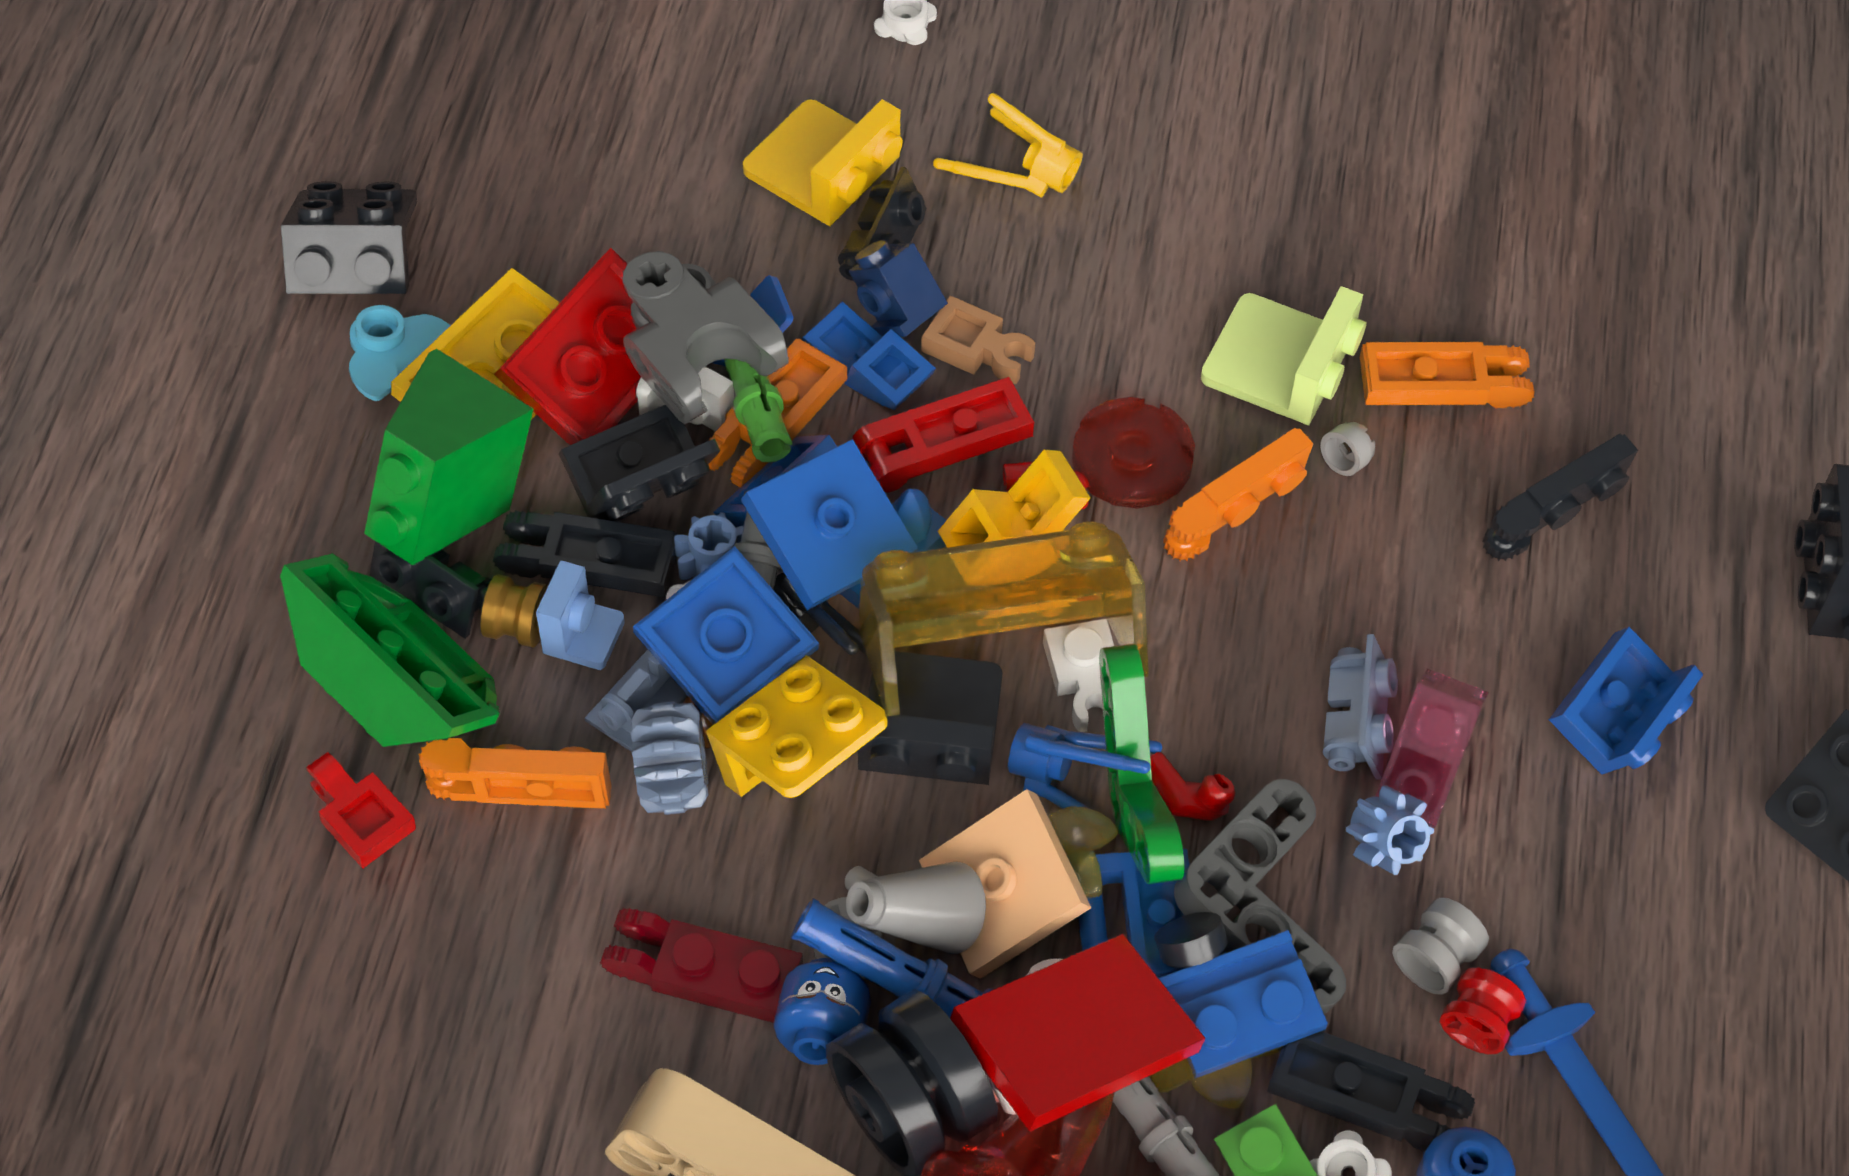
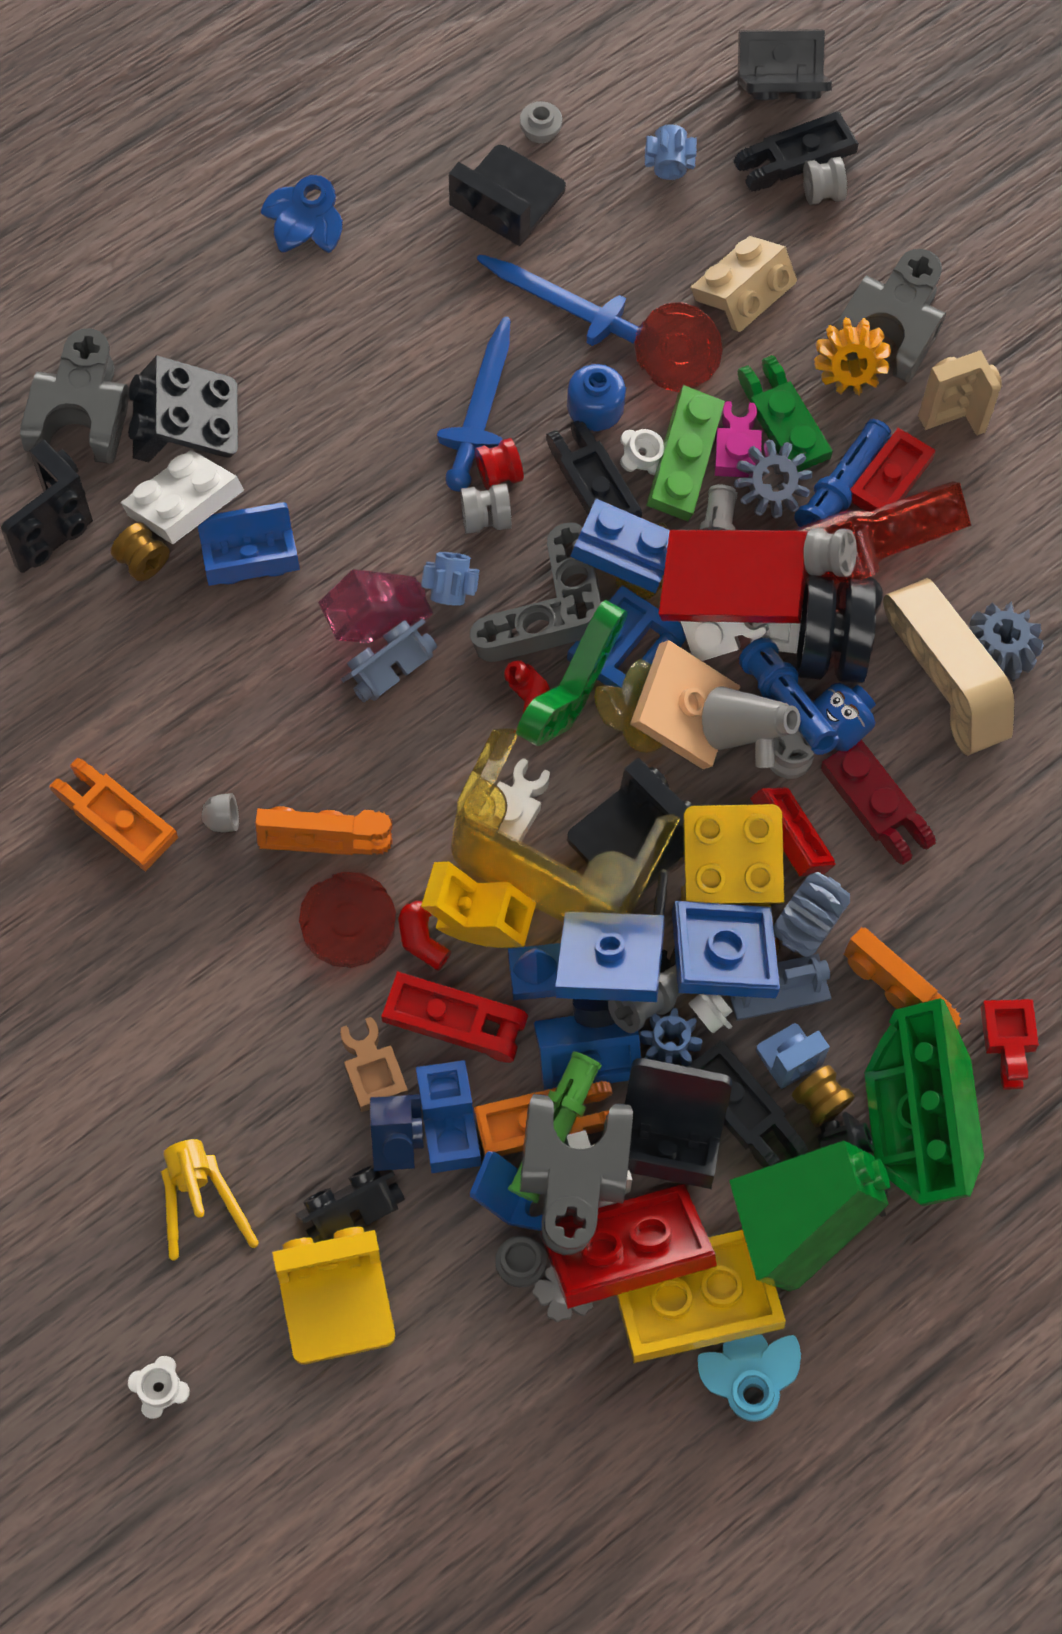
camera: 140 degrees left, 10 degrees up
(347, 239) = (711, 1504): bracket -> none
(767, 847) = (800, 838): none -> red plate
(986, 1117) = (830, 552): none -> light grey wheel
(1048, 755) = (592, 762): blue plant -> none
(1191, 940) = (623, 587): black tile -> none
(1284, 355) = (193, 898): yellowish green bracket -> none
(1559, 497) = (143, 683): black hinge -> none
(1718, 615) = (140, 551): none -> pearl gold wheel
(1747, 693) = (182, 496): none -> white plate

